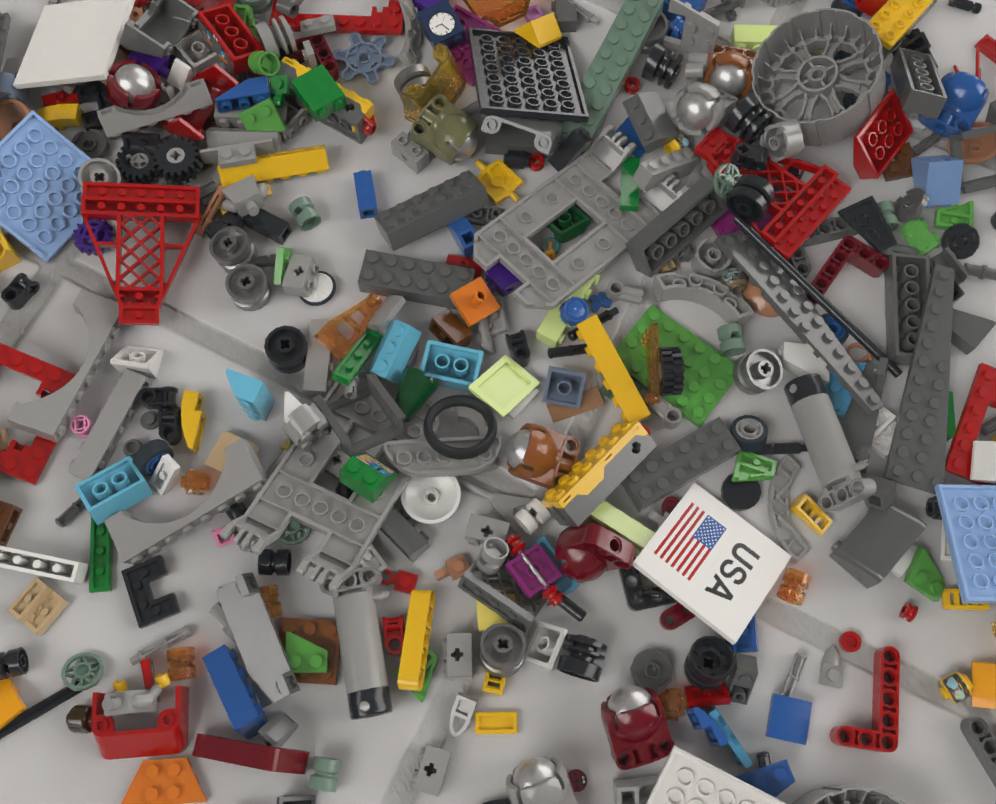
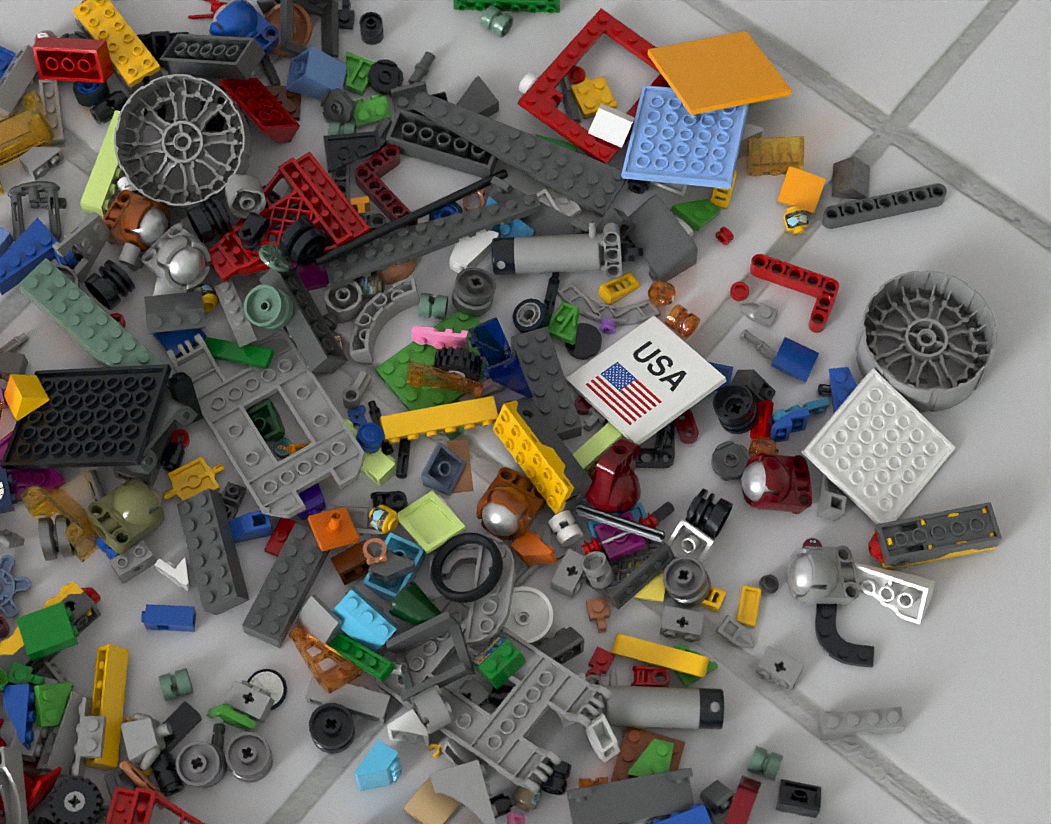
camera: 75 degrees left, 5 degrees down
(313, 598) = (602, 738): none -> white slope
(408, 187) = (177, 574): none -> white slope
(444, 356) = (393, 568): none -> dark grey slope
(448, 345) = (383, 557): none -> nougat piece
(497, 344) = (383, 519): none -> head
(500, 489) = (532, 550): none -> orange slope
(523, 739) = (769, 584): none -> dark grey plate
(545, 567) = (620, 523): none -> black axle
(674, 187) = (268, 307): none -> sand green wheel
(686, 409) = (498, 357): none -> clear blue windscreen
(696, 367) = (438, 339): none -> bright pink wing
(764, 511) = (608, 326): none -> medium lavender bush
(815, 251) = (361, 204): none -> light orange tile
(817, 558) = (661, 293): none -> clear orange head
(852, 513) = (628, 252): none -> black tile

